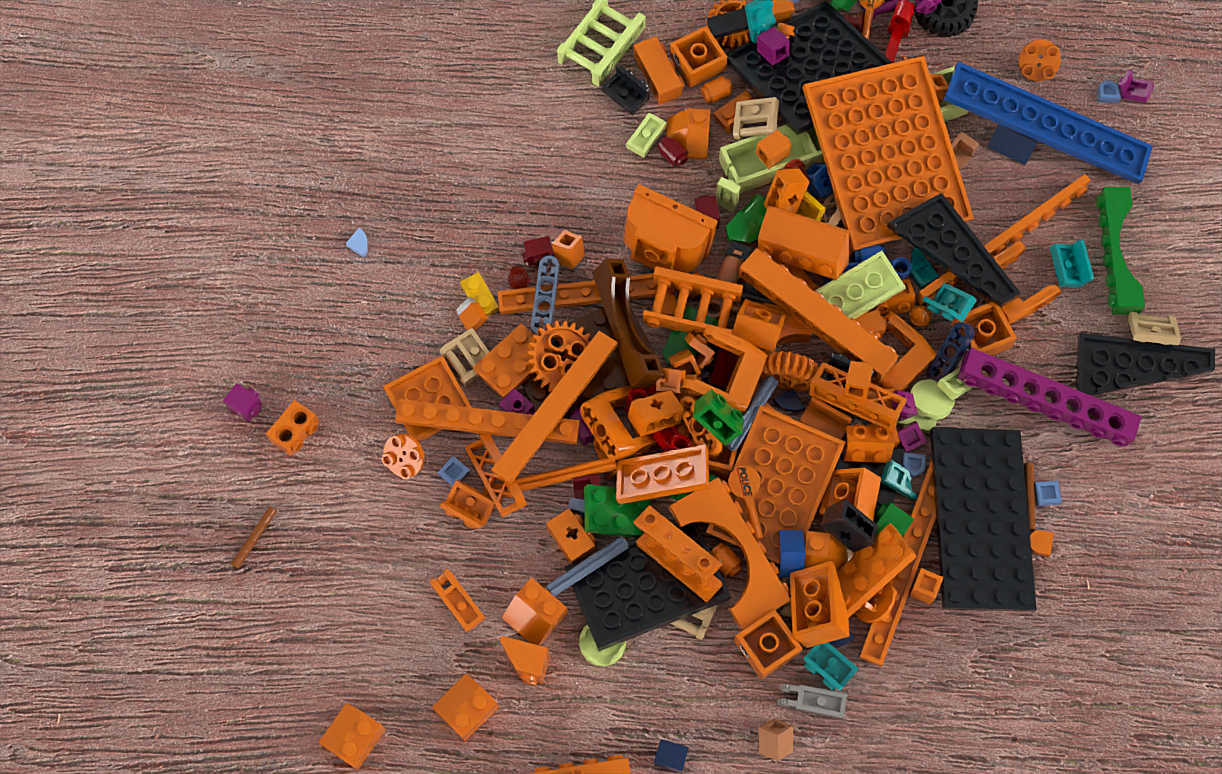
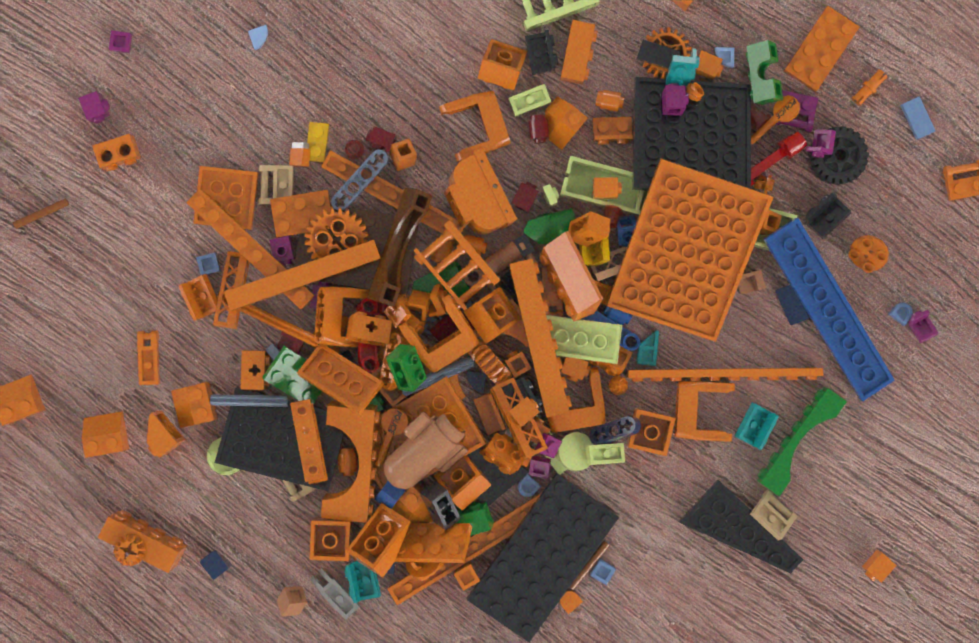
camera: 25 degrees right, 20 degrees up
(229, 330) = (120, 41): none -> magenta plate
(412, 460) = (179, 230): orange plate -> none
(600, 122) = (502, 64): none -> orange slope
(618, 167) = (491, 119): none -> orange connector
(698, 56) = (614, 64): orange brick -> none
(753, 112) = (618, 147): tan plate -> none
(796, 479) = (429, 445): none -> nougat piece
(816, 351) = (517, 363): none -> orange brick
(898, 479) = (506, 491): teal tile -> none
(948, 240) = (677, 349): black wing -> none
(951, 302) = (640, 397): teal bracket -> none
(979, 53) = (827, 215): none -> black bracket
(1125, 422) = (694, 566): magenta brick -> none

